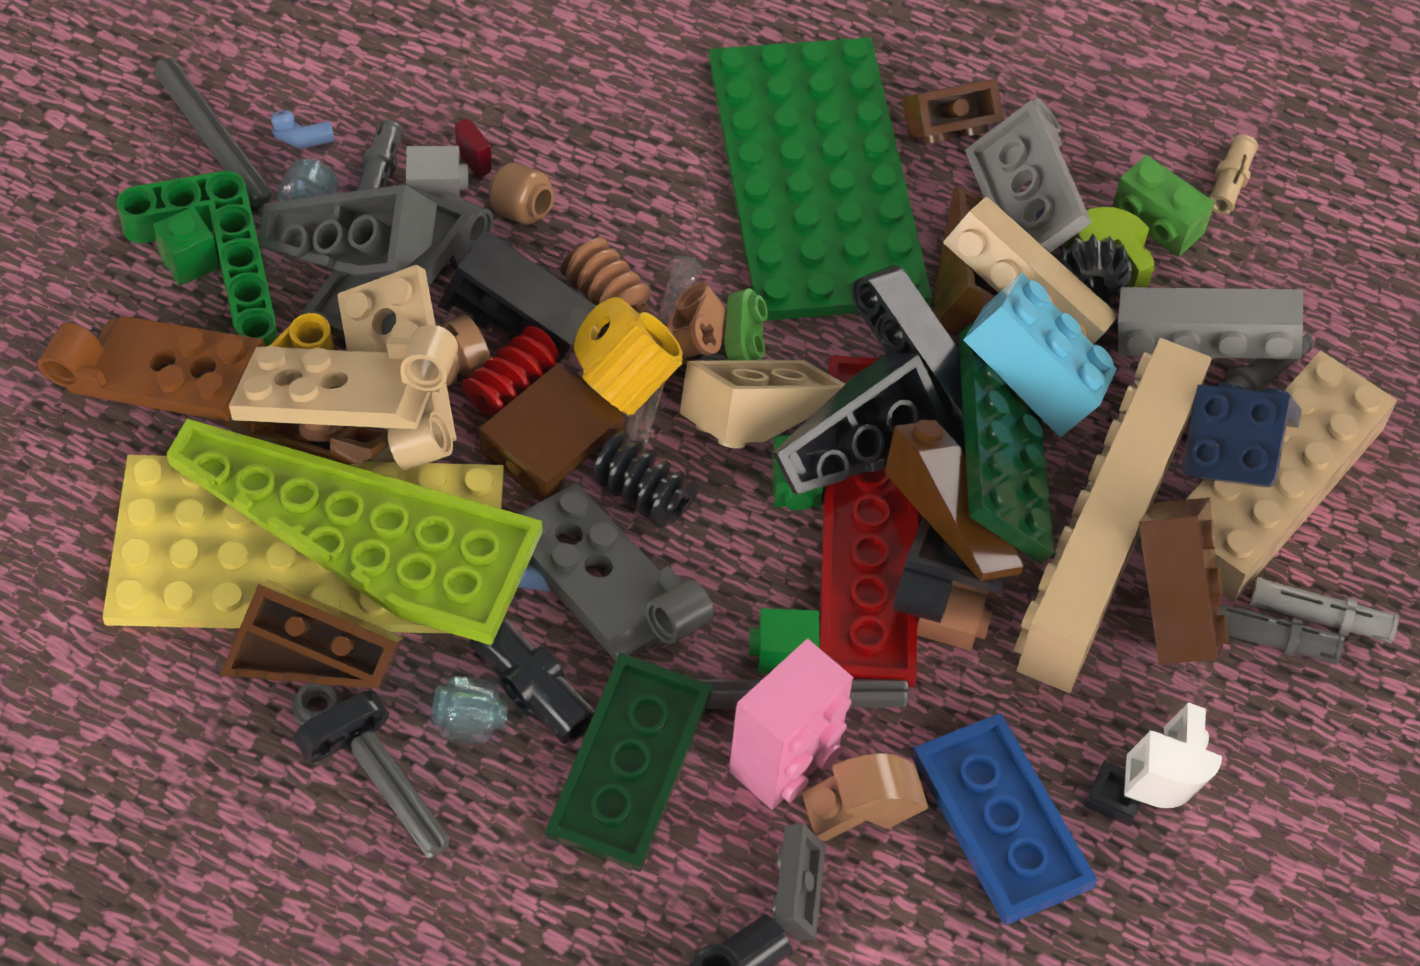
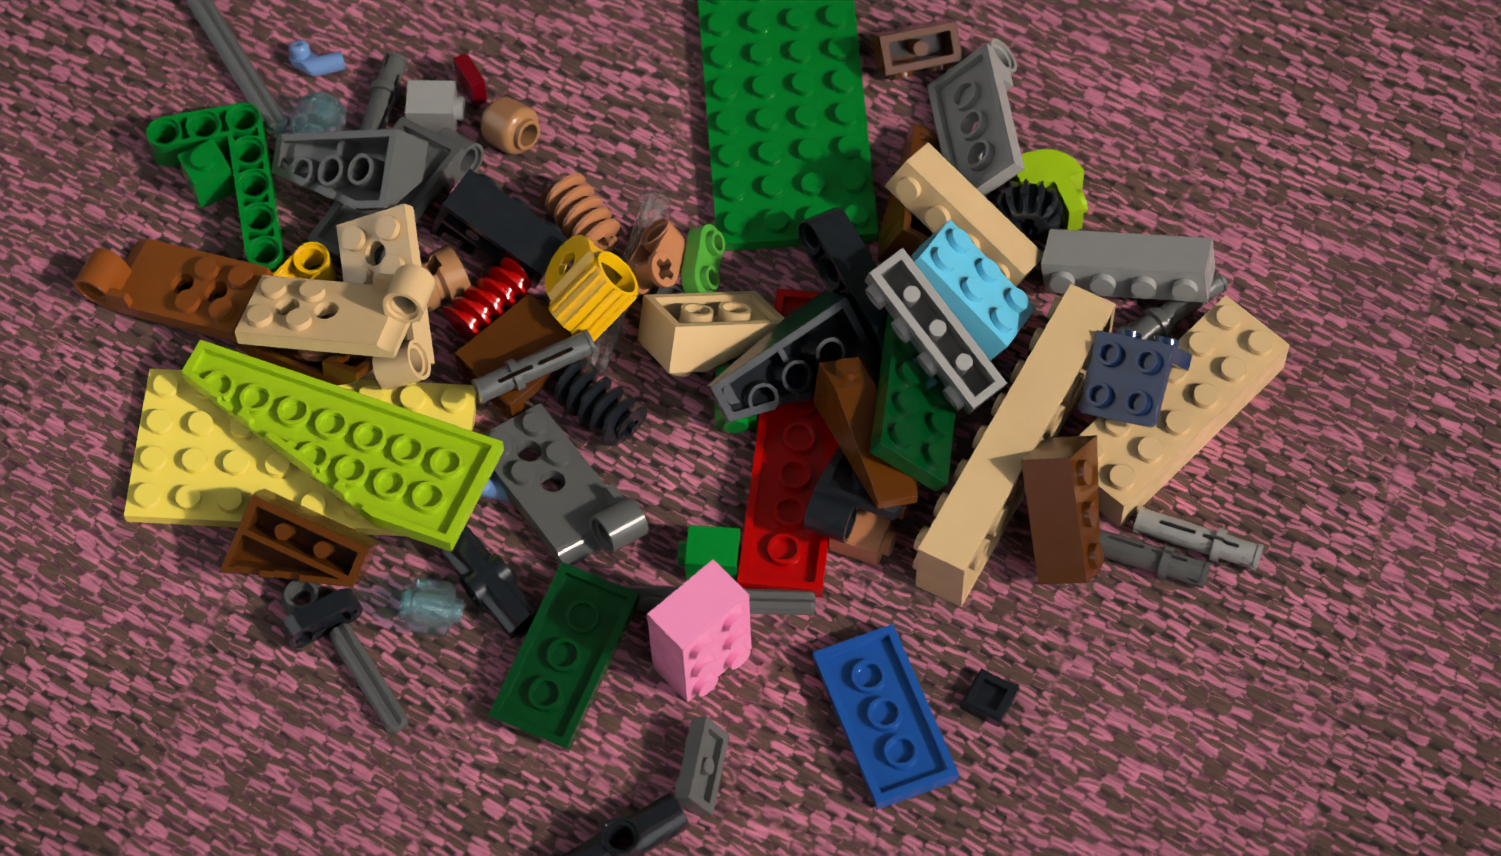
camera: 10 degrees right, 5 degrees up
(523, 462) = (488, 387): none -> dark grey pin
(863, 789) = (767, 688): medium nougat brick -> none
(1024, 387) = (935, 332): none -> light grey brick
(1165, 203) = (1103, 146): bright green brick -> none
(1173, 765) = (1040, 679): white brick -> none
(1233, 173) = (1177, 114): tan pin -> none

